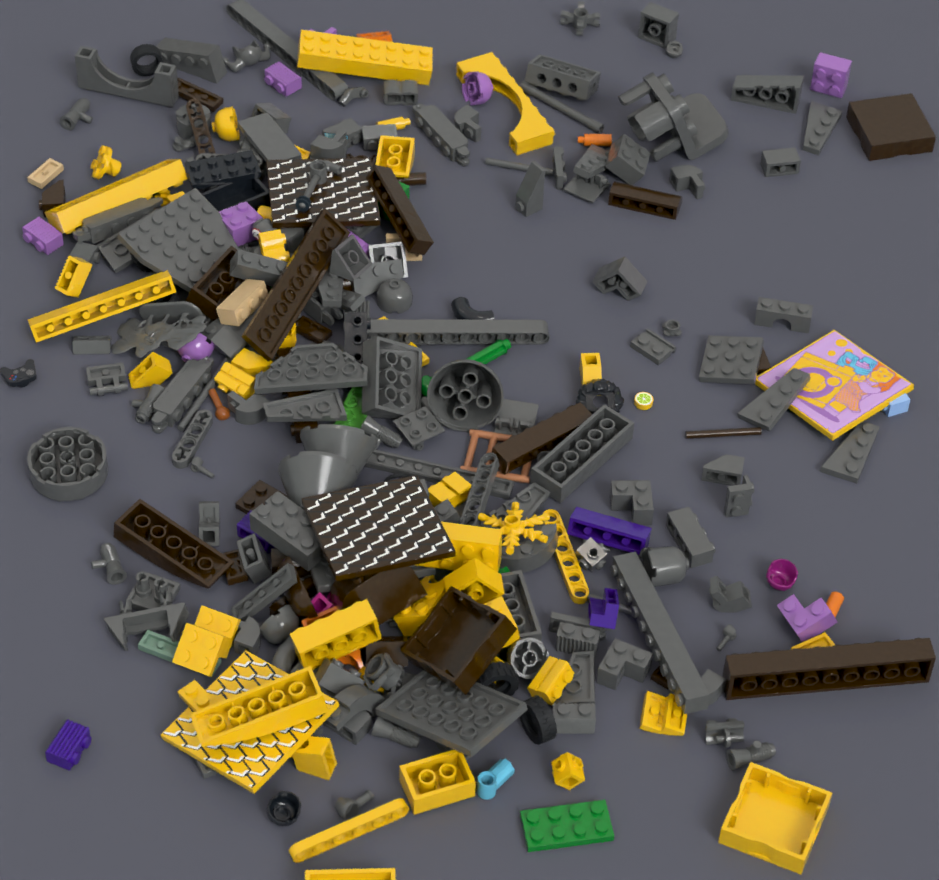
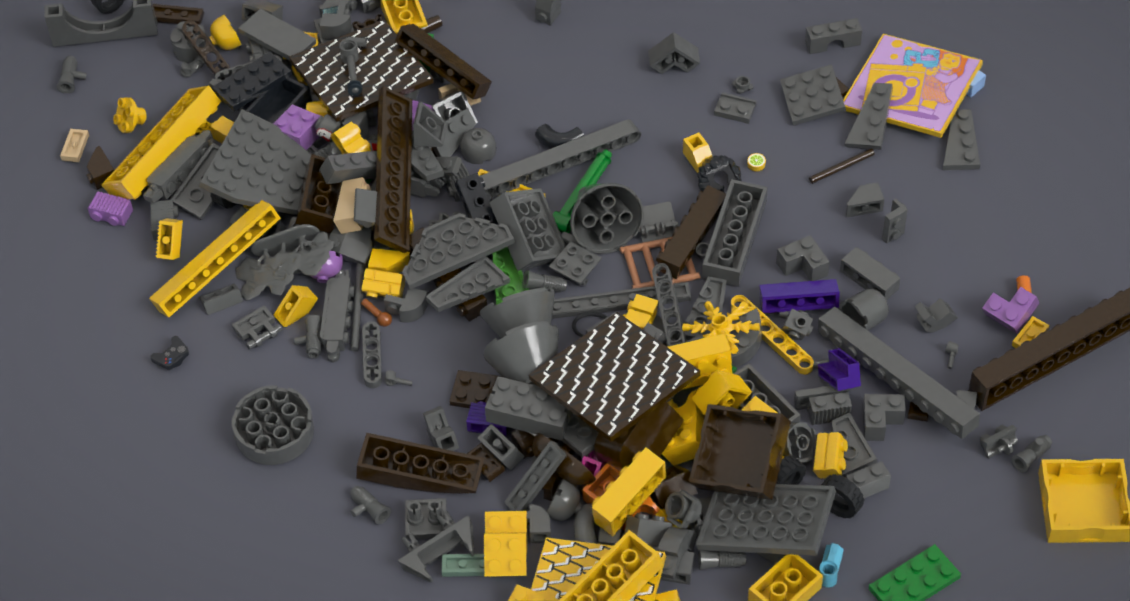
camera: 20 degrees left, 5 degrees up
(248, 305) = (365, 207): none -> dark grey slope
(312, 330) = (425, 207): dark brown plate -> none
(568, 771) = (890, 531): yellow brick -> none
(662, 715) = (938, 446): yellow slope -> none
(781, 574) = (967, 278): magenta hair -> none

